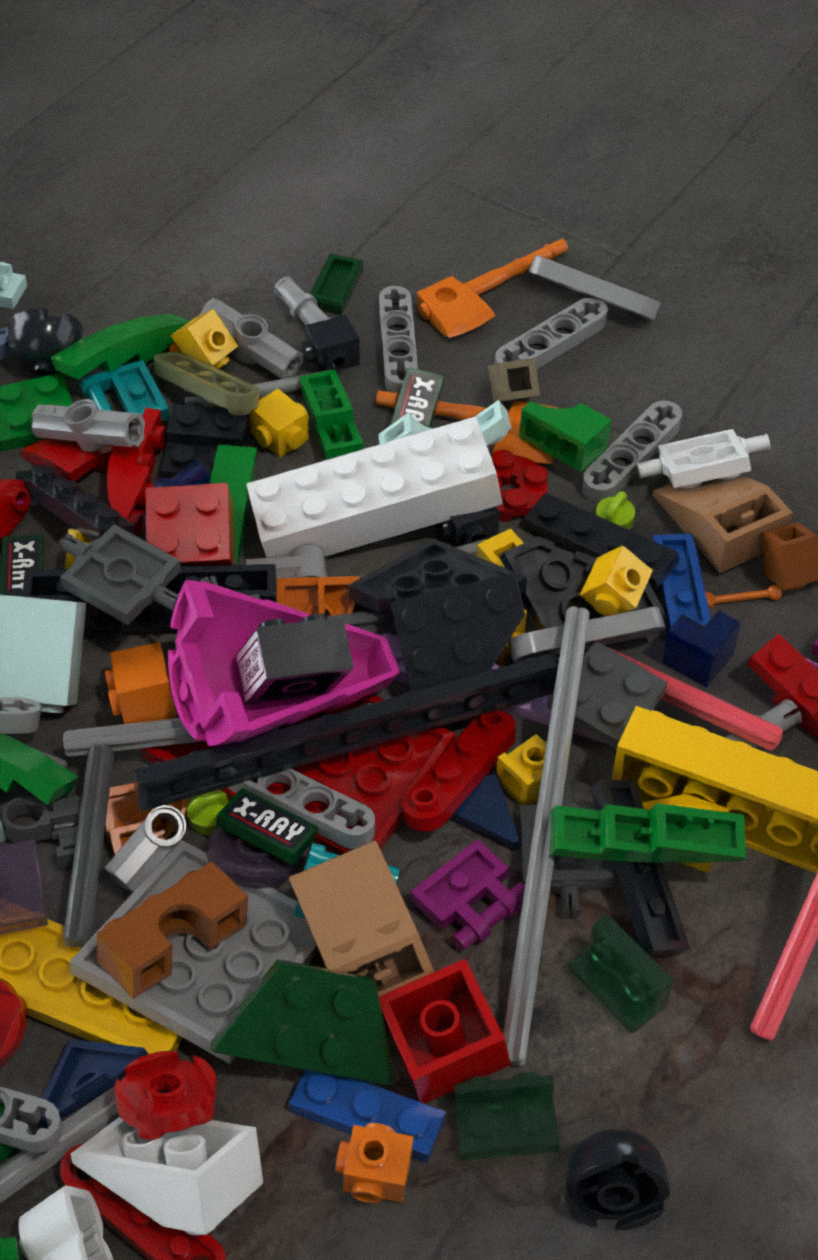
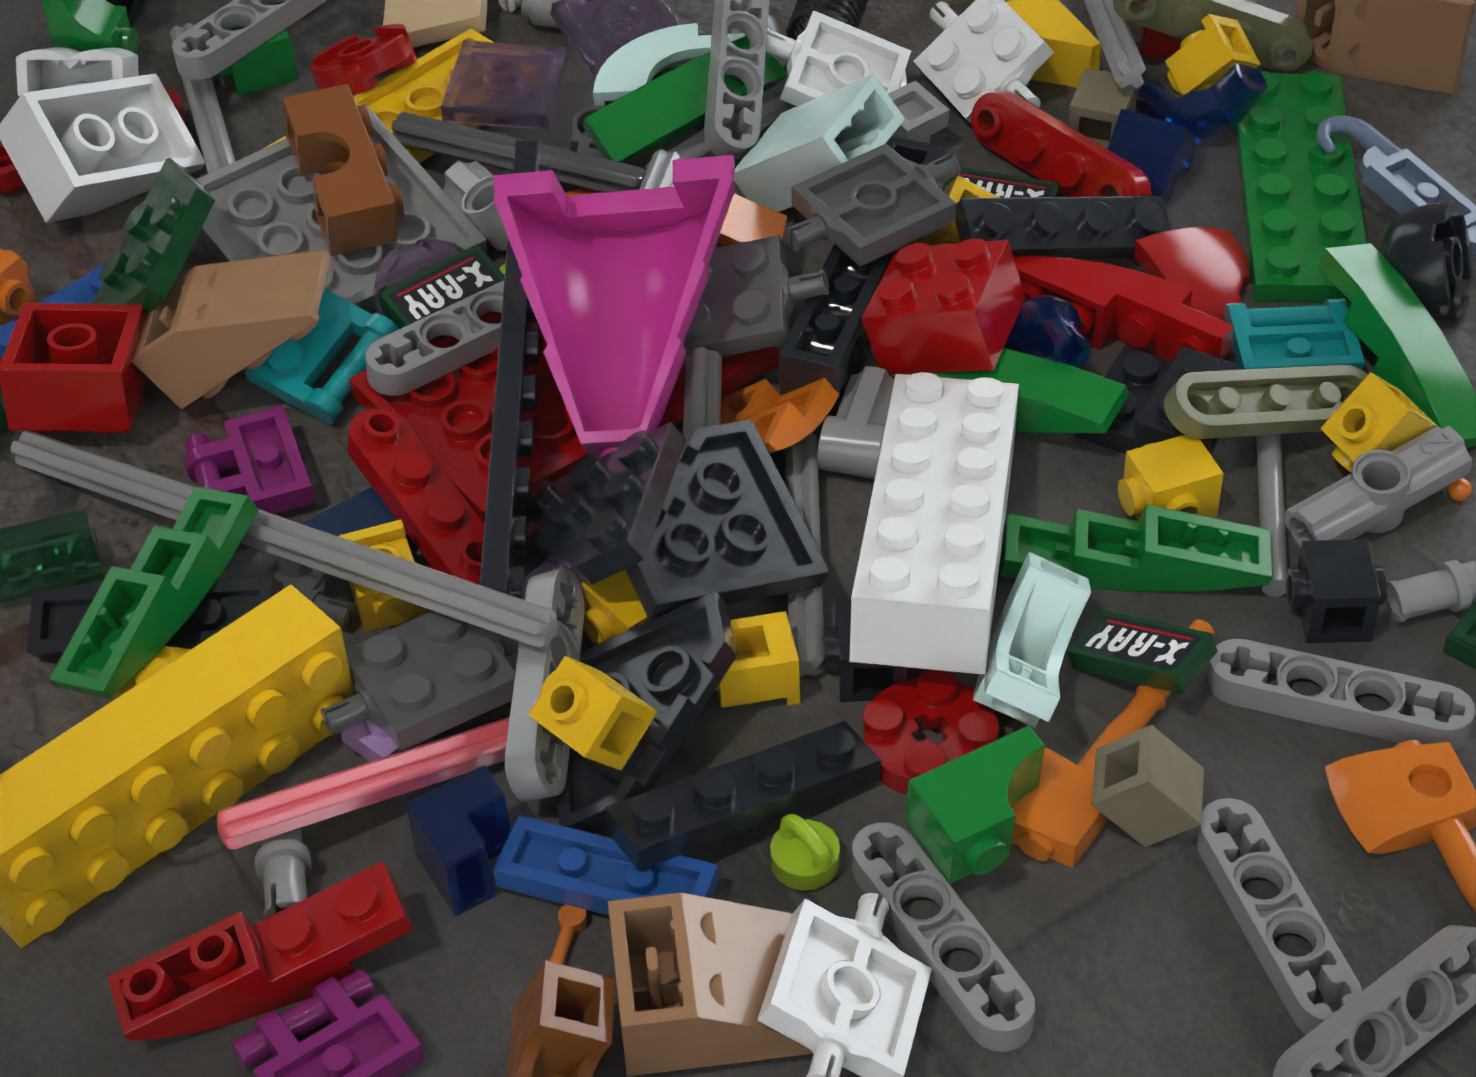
camera: 115 degrees right, 5 degrees down
(86, 1072) = (253, 126): dark blue tile -> none
(88, 425) = (1199, 249): light grey piece -> none
(154, 1114) = (160, 117): red plate -> none
(294, 659) = (607, 289): black brick -> none

